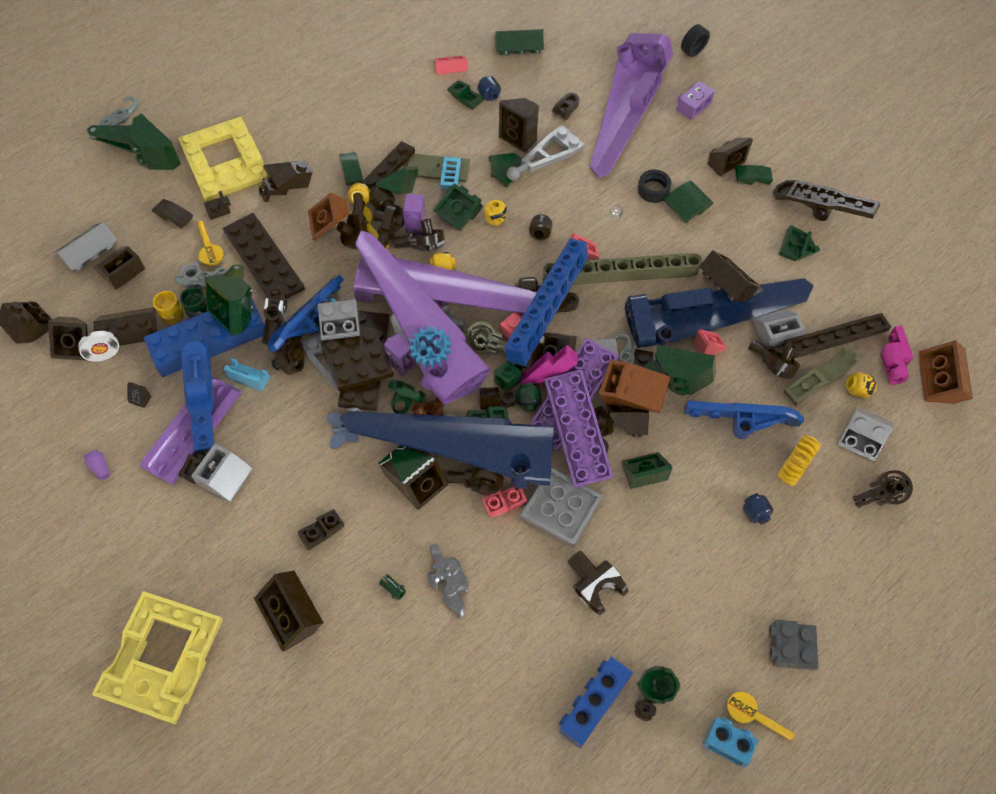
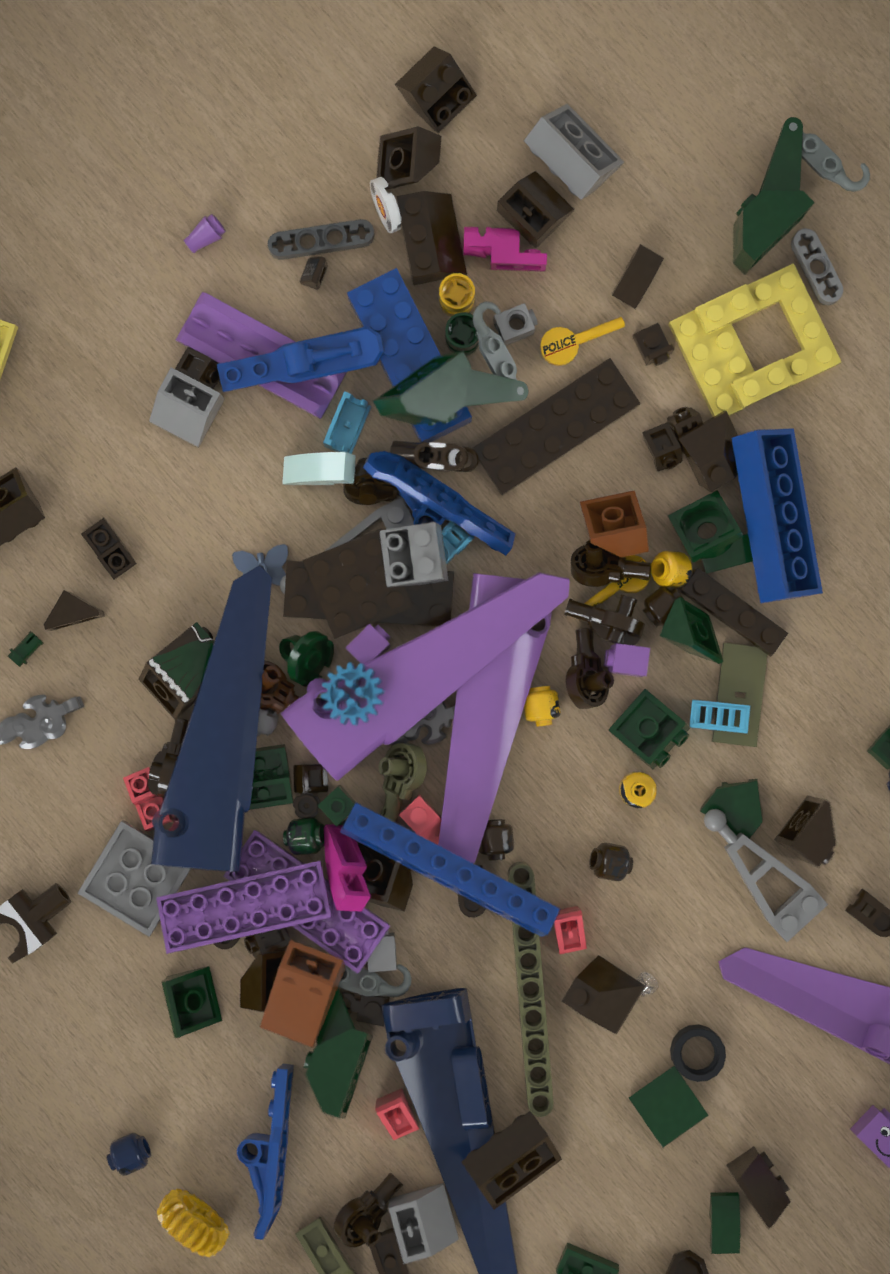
camera: 90 degrees right, 25 degrees up
(112, 392) = (321, 244): none -> dark grey beam
(142, 284) = (503, 248): none -> dark pink plate
(168, 128) = (801, 252): none -> light grey beam
(275, 385) = (319, 469): none -> light aqua slope
(281, 200) = (663, 447): none -> dark brown bracket
(325, 171) = (705, 510): none -> dark green piece
(329, 140) = (776, 515): none -> blue brick
(364, 552) = (71, 611): none -> dark brown slope
(622, 229) = (604, 994): none -> dark brown slope

